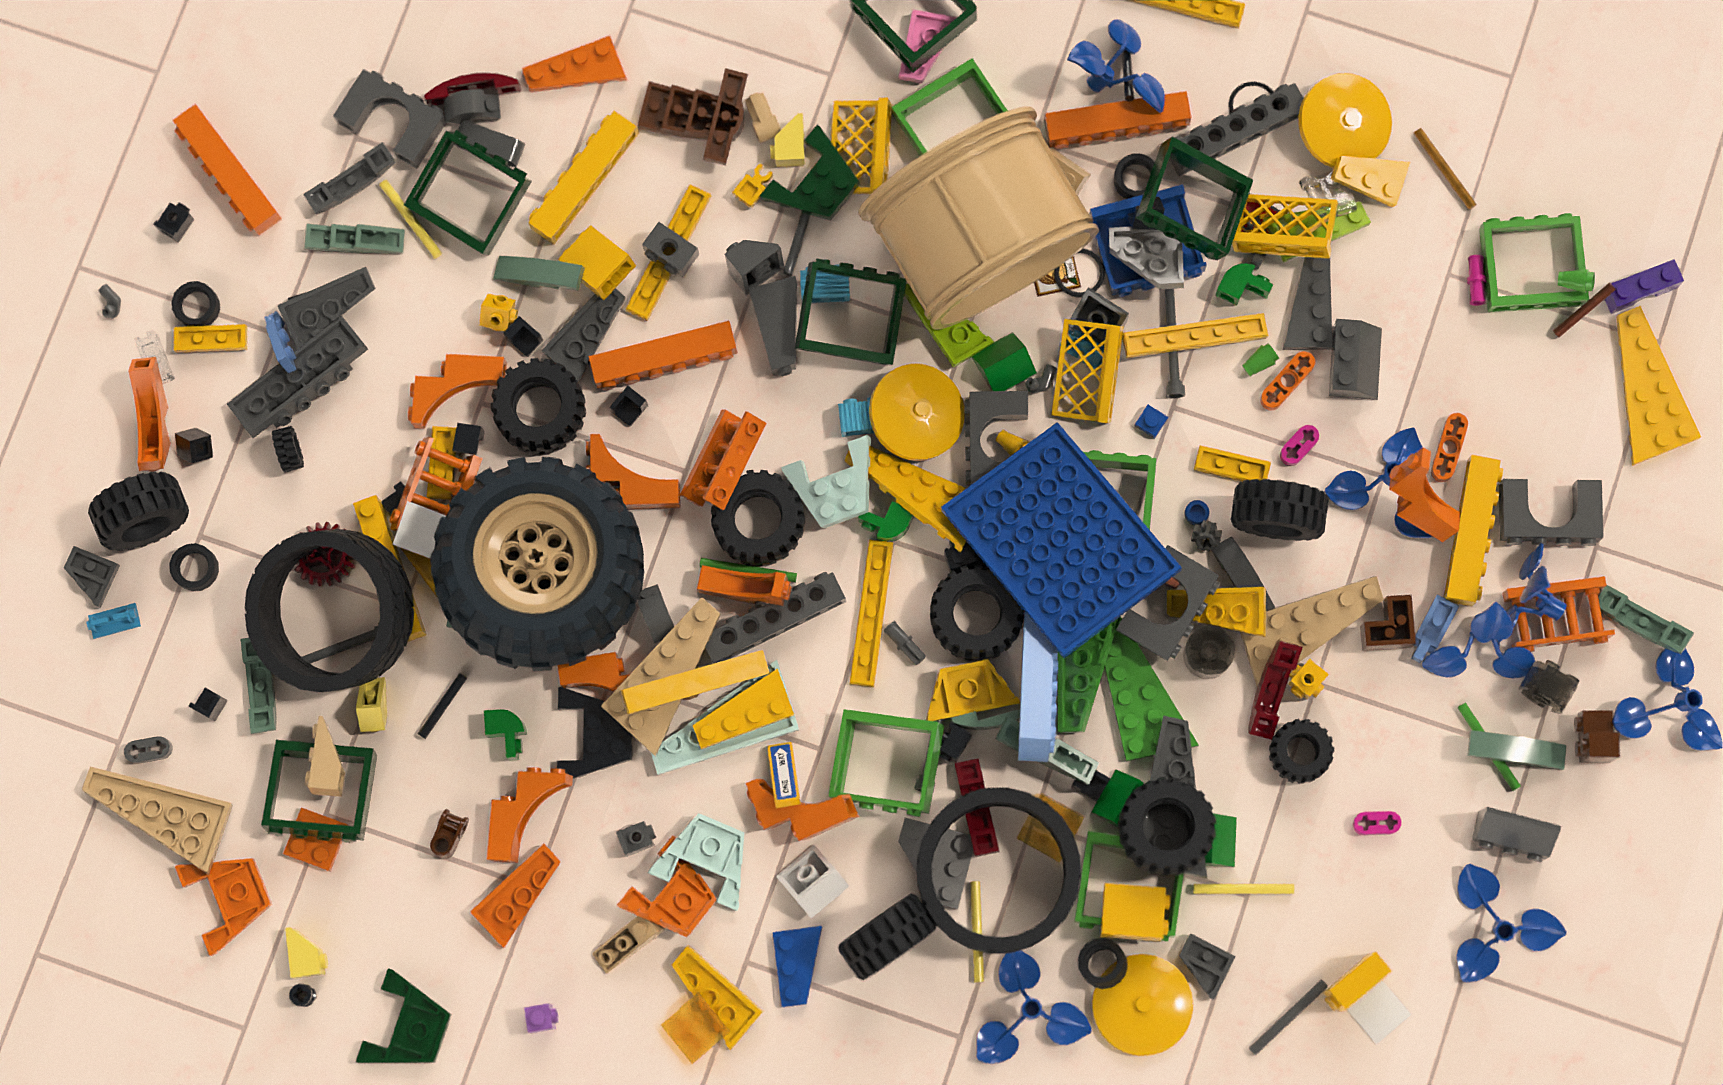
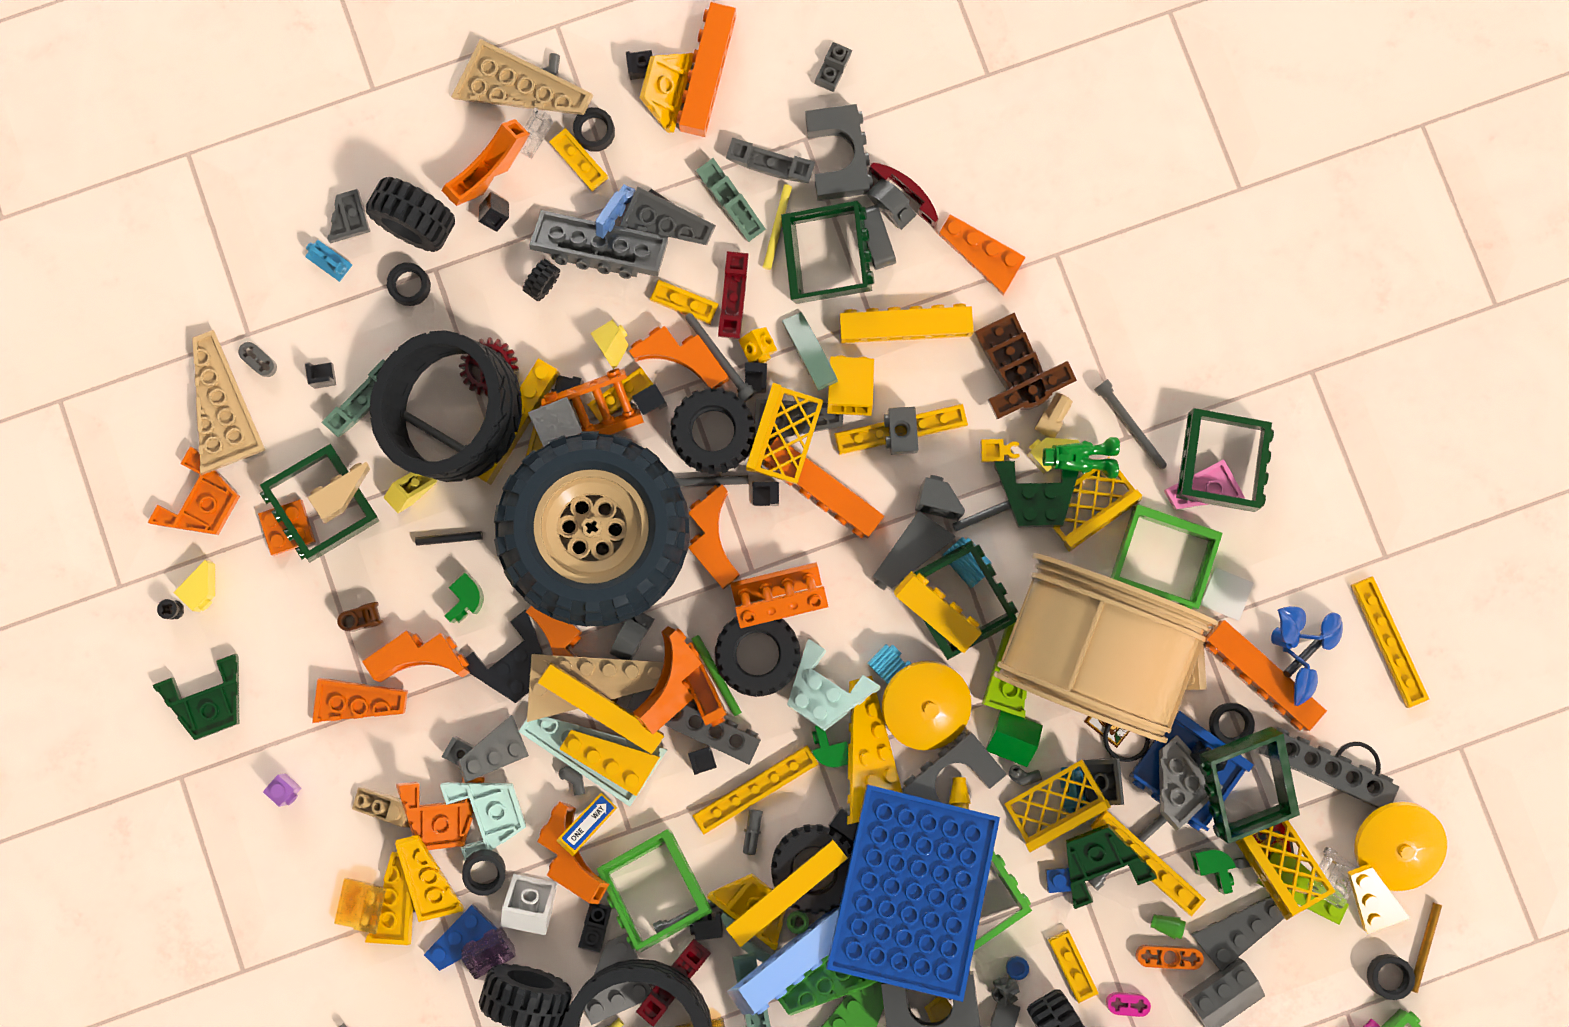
camera: 45 degrees right, 5 degrees up
(92, 342) = (507, 80): none -> tan wing
(212, 215) = (665, 86): none -> yellow wing
(314, 65) = (833, 66): none -> dark grey slope
(390, 432) = (611, 342): none -> light yellow slope
(408, 346) = (684, 302): none -> yellow tile
(437, 300) = (733, 295): none -> dark red slope
(524, 353) = (745, 391): none -> dark grey piece
(573, 359) = (765, 429): none -> yellow fence
(581, 442) = (708, 481): none -> dark grey bar
(657, 807) = (494, 751): none -> dark grey wing
(723, 952) = (426, 883): none -> yellow wing
(729, 610) = (671, 690): none -> orange arch
(734, 898) = (483, 889): none -> black tyre
(735, 758) = (573, 777): none -> dark grey arm
(776, 59) = (1106, 391): none -> dark grey piece
(809, 637) = (702, 760): none -> black panel
(810, 124) = (1076, 457): none -> green piece
(822, 947) = (487, 952): none -> clear purple brick
(844, 336) = (937, 611): none -> yellow brick
(877, 841) = (595, 927): none -> black slope
(976, 646) = (786, 893): none -> yellow tile
(1006, 656) = (792, 925): none -> bright green cone
(1028, 91) = (1227, 593): none -> white sticker
(1153, 367) = (1100, 853): none -> dark green wing
(1438, 231) = (1408, 977): none -> black tyre

